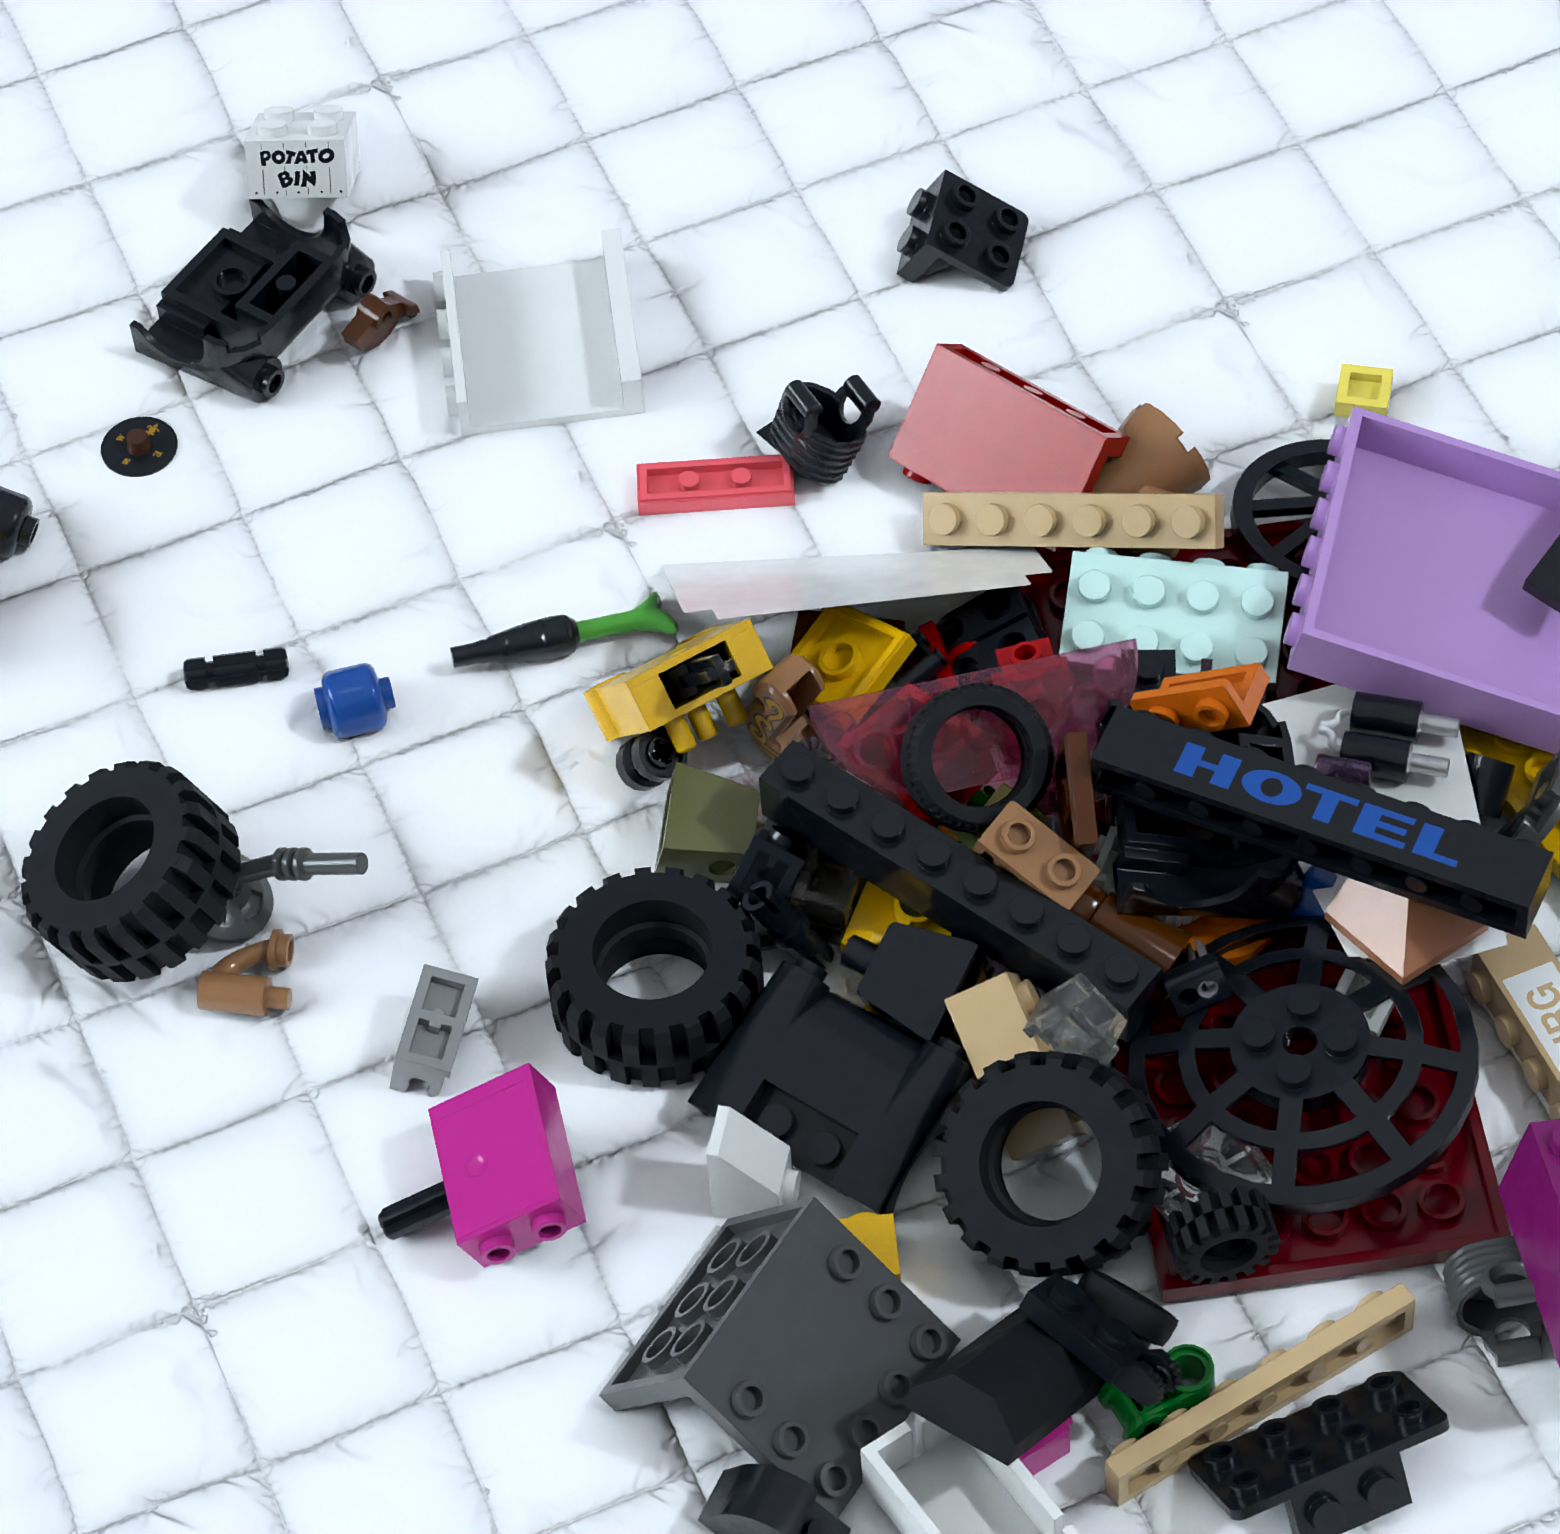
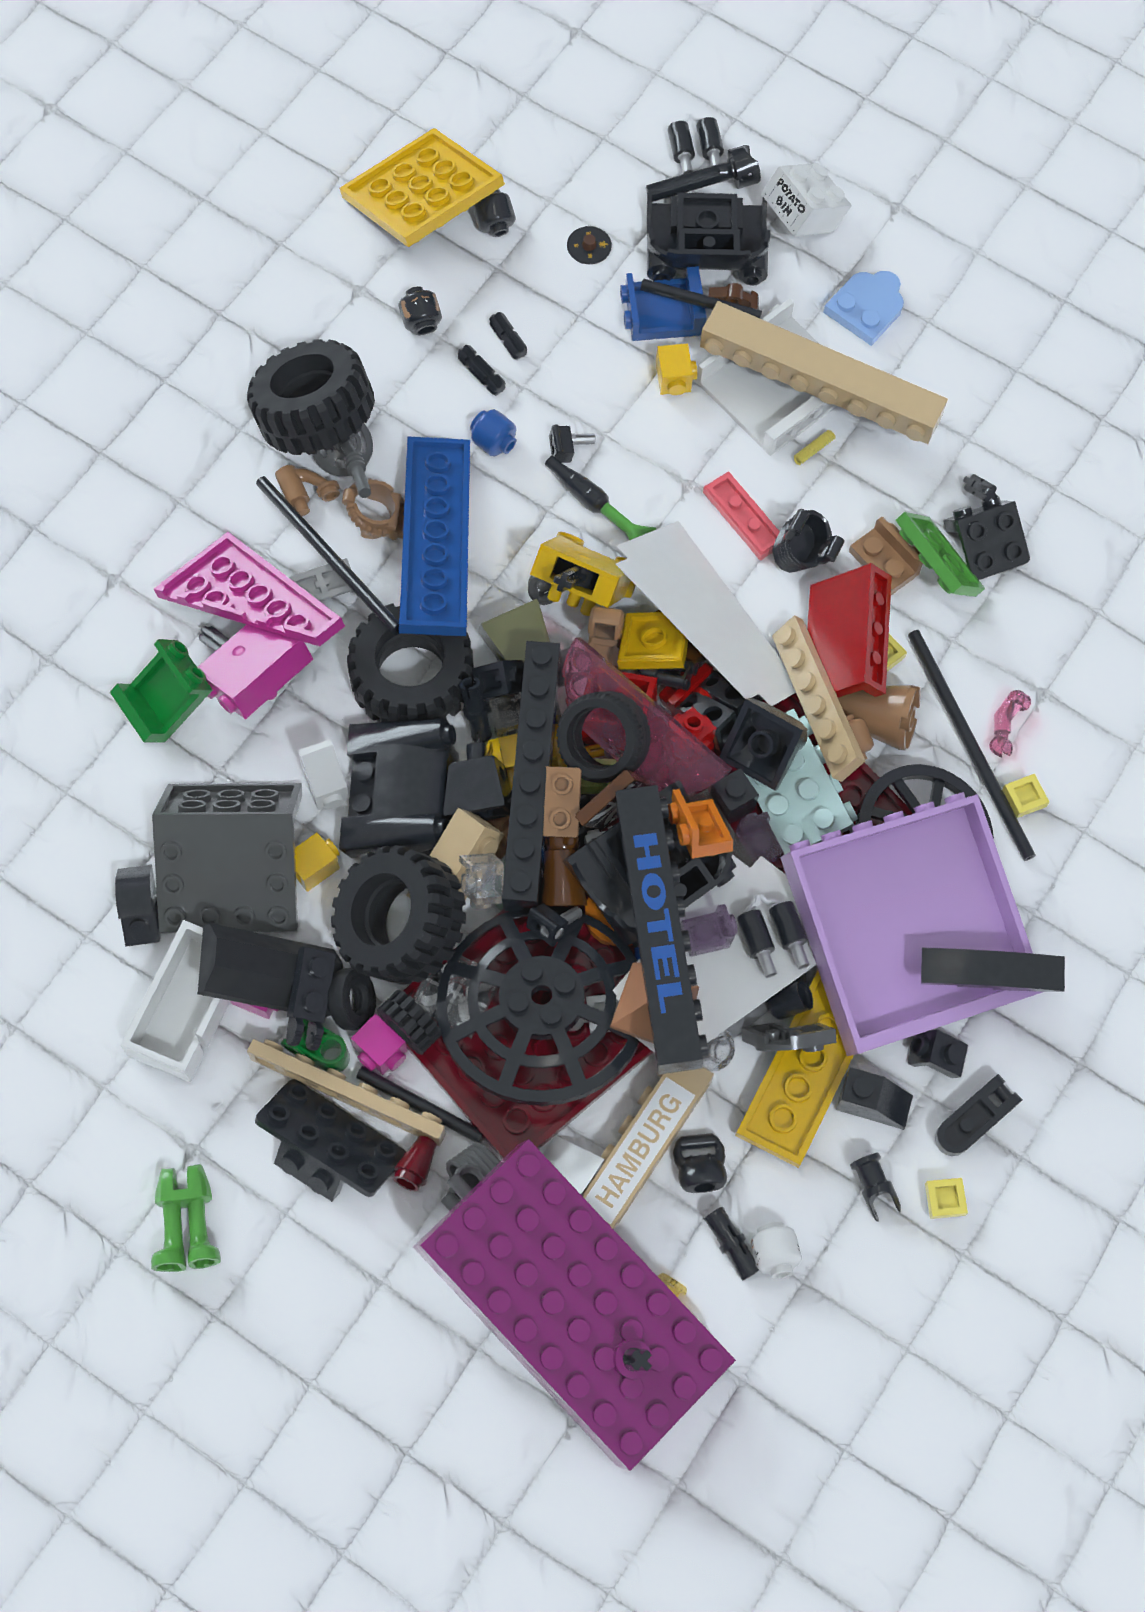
camera: 50 degrees right, 15 degrees up
(81, 688) = (420, 311): none -> black head
(98, 221) = (682, 143): none -> black piece
(177, 210) = (737, 169): none -> black piece
(220, 609) = (505, 332): none -> black piece
(322, 402) = (661, 317): none -> blue panel
(356, 1126) = (246, 588): none -> wing
(361, 345) = (691, 297): none -> black bar
(388, 881) = (384, 494): none -> medium nougat piece
(402, 981) = (329, 555): none -> black piece
(430, 441) = (675, 369): none -> yellow brick
(437, 628) = (563, 442): none -> black piece
(457, 1306) = (163, 692): none -> green panel
(483, 831) = (435, 537): none -> blue plate
(507, 186) = (867, 304): none -> light blue plate
(590, 266) = (823, 372): none -> tan brick
(675, 354) = (813, 447): none -> light yellow piece
(890, 202) = (980, 488): none -> black piece
(896, 350) = (889, 552): none -> medium nougat bracket
(956, 294) = (939, 554): none -> bright green plate
(1107, 596) = (764, 742): none -> black slope
(1207, 409) = (972, 746): none -> black piece
(1217, 1313) = (379, 1046): none -> dark pink brick
(1231, 356) = (1014, 702): none -> clear pink arm
(1411, 1277) = (419, 1103): none -> black bar
(1427, 1362) = (415, 1165): none -> dark red cone

